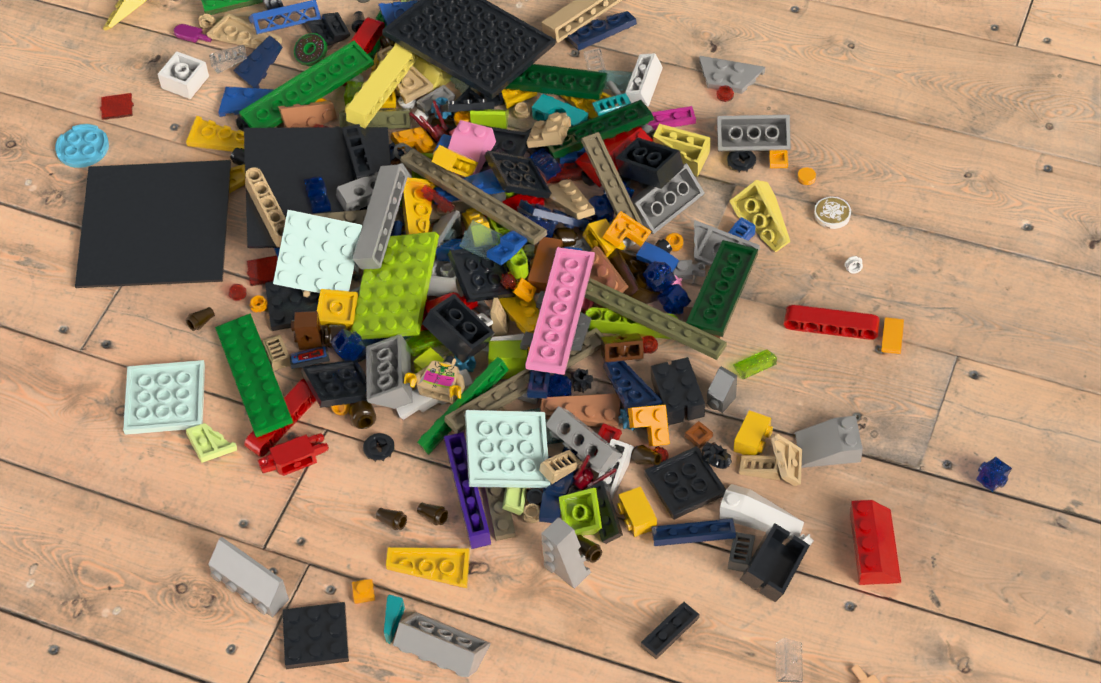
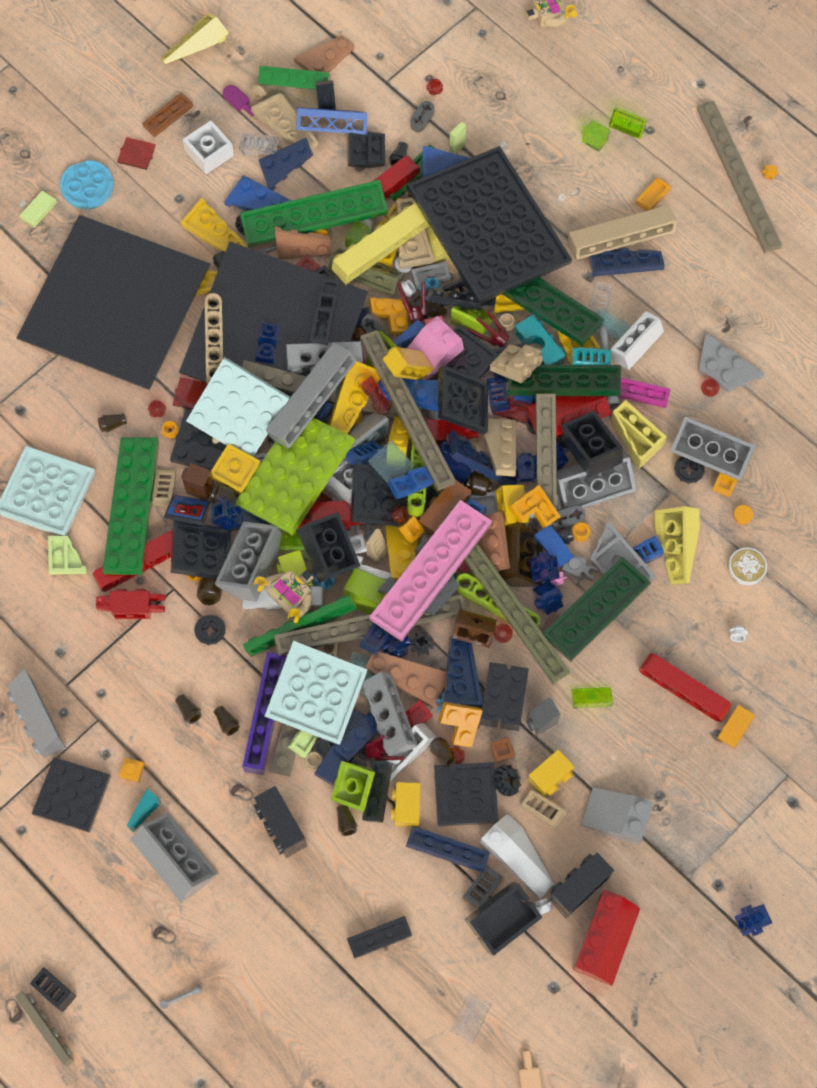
camera: 20 degrees right, 15 degrees up
(45, 180) = (38, 209): none -> yellowish green tile
(131, 67) = (167, 115): none -> dark orange tile
(306, 42) = (332, 161): tile -> none
(435, 564) = (205, 773): yellow wing -> none
(461, 115) = (444, 310): light orange tile -> none
(521, 121) = (498, 335): none -> dark red plant
(528, 570) = (279, 822): none -> black brick
(552, 475) = (341, 733): tan slope -> none
(562, 553) = (317, 820): light grey wedge -> none
(659, 236) = (569, 520): none -> dark grey beam
(788, 459) = (569, 816): tan wing -> none
(828, 507) = (580, 884): none -> black piece

